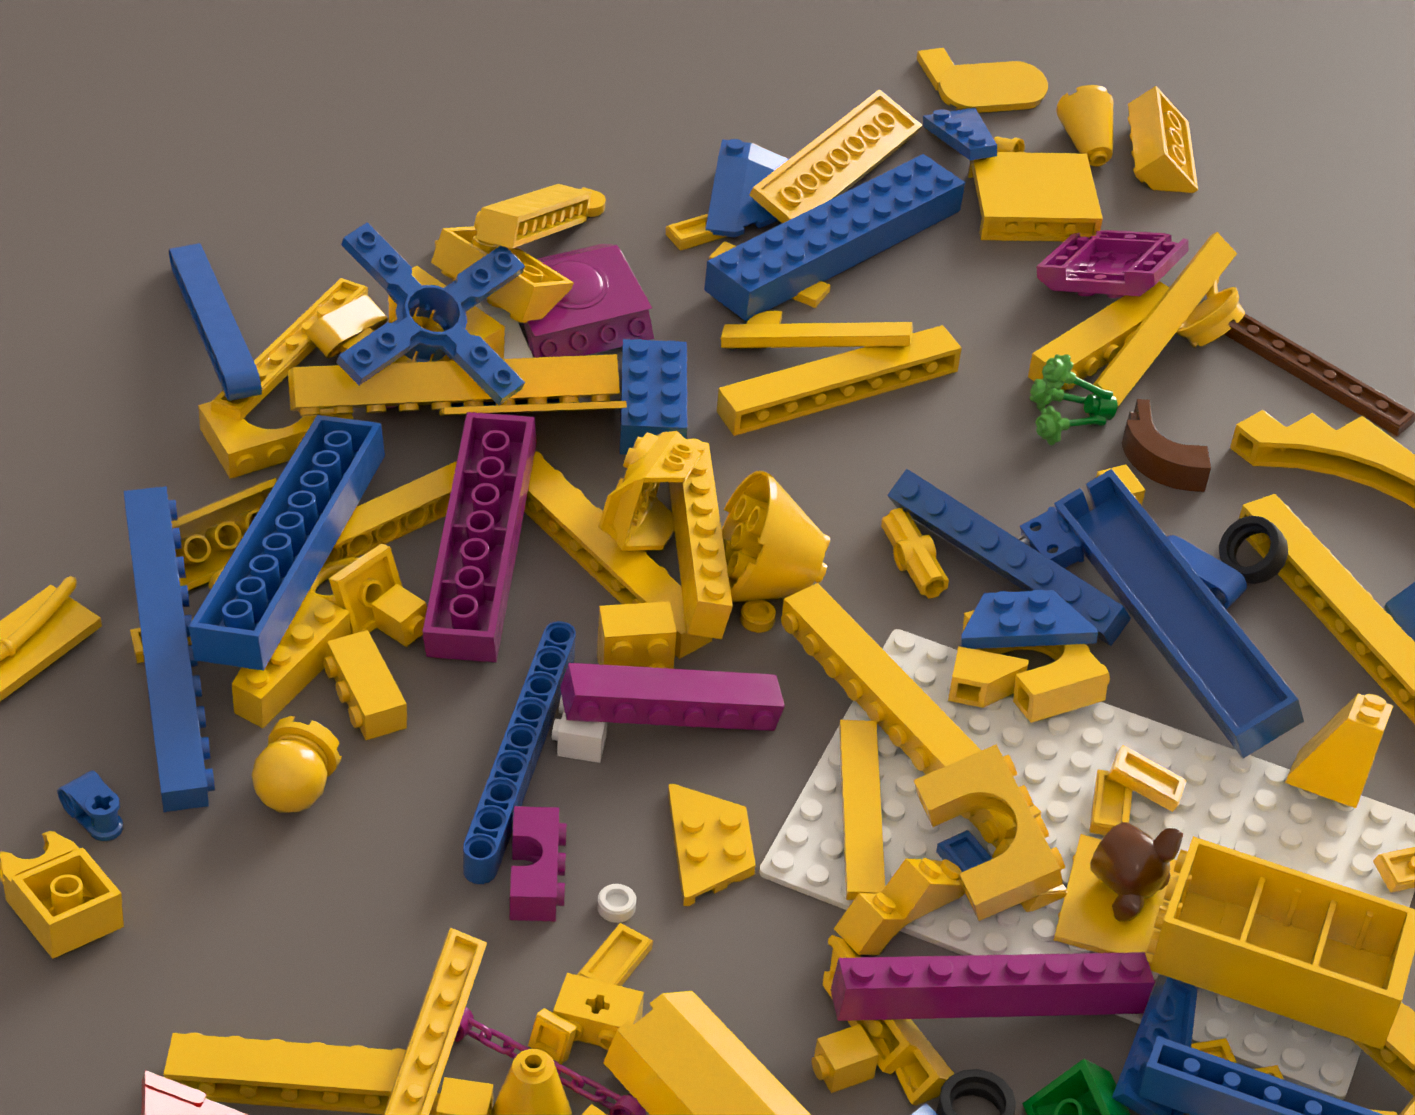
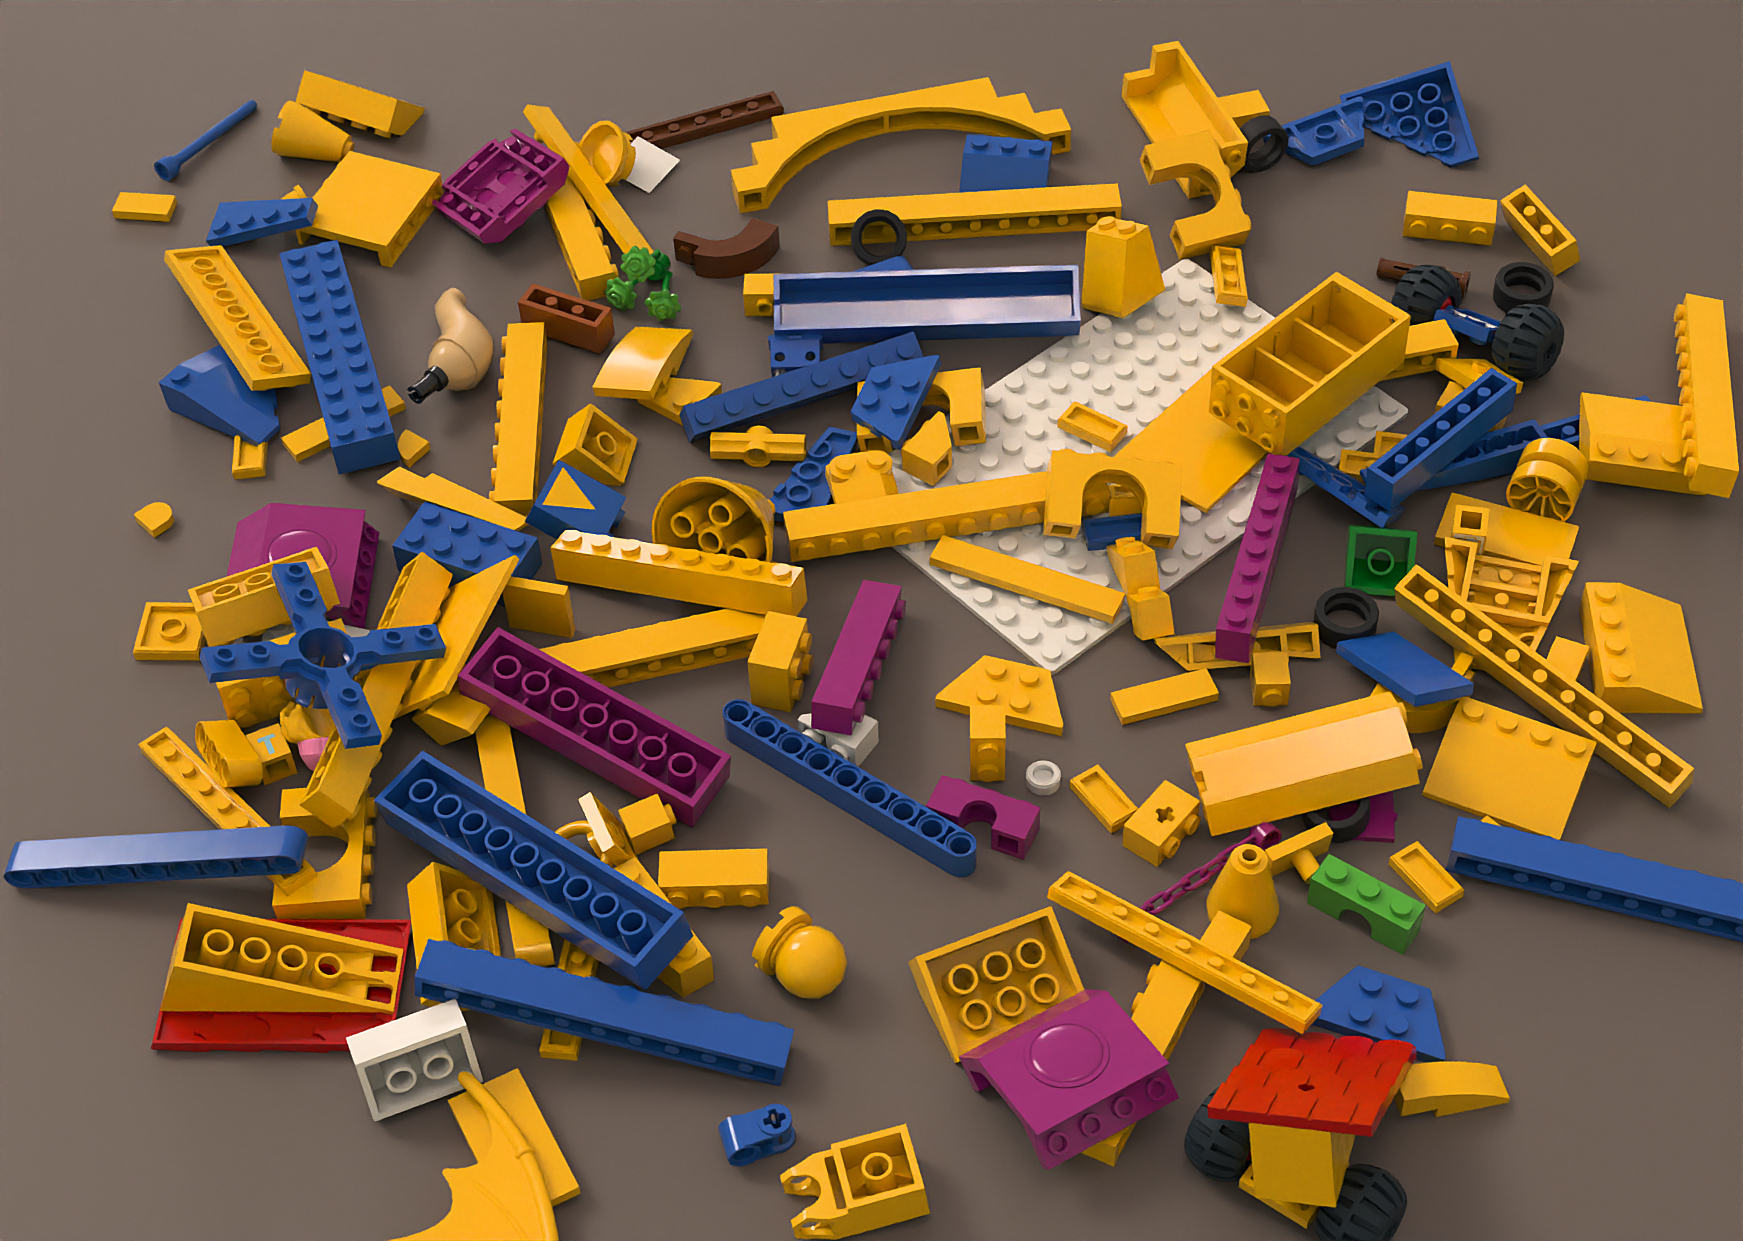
camera: 60 degrees left, 5 degrees up
(72, 539) = (413, 1059): none -> white brick
(131, 431) = (278, 982): none -> yellow piece
(226, 1007) = (1073, 1074): none -> magenta panel
(335, 936) = (995, 979): none -> yellow slope
(447, 438) = (451, 717): none -> yellow slope
(532, 215) = (210, 542): yellow brick -> none
(552, 1035) = (1173, 861): yellow tile -> none
(609, 452) = (539, 607): none -> yellow tile
(616, 831) = (987, 743): none -> yellow brick
(632, 510) = (613, 576): yellow slope -> none
(704, 361) = (450, 496): none -> yellow wedge
(741, 441) = (575, 503): none -> blue brick
(777, 975) = (1164, 696): none -> yellow tile
(817, 335) = (465, 408): yellow tile -> none
(836, 440) = (596, 446): none -> yellow slope
(892, 301) = (460, 353): none -> tan animal
(900, 608) = (808, 484): none -> blue wing
(910, 636) = (860, 476): none -> yellow slope
(949, 473) = (680, 392): none -> yellow wing
(965, 433) = (642, 363): none -> yellow slope
(981, 363) = (568, 317): none -> dark orange brick
(993, 86) = (202, 179): yellow tile -> none
(1064, 76) = (169, 166): none -> blue piece
(1134, 865) = (1182, 426): reddish brown piece -> none
(1147, 778) = (1083, 393): yellow tile -> none
(1238, 356) = (650, 165): none -> white sticker

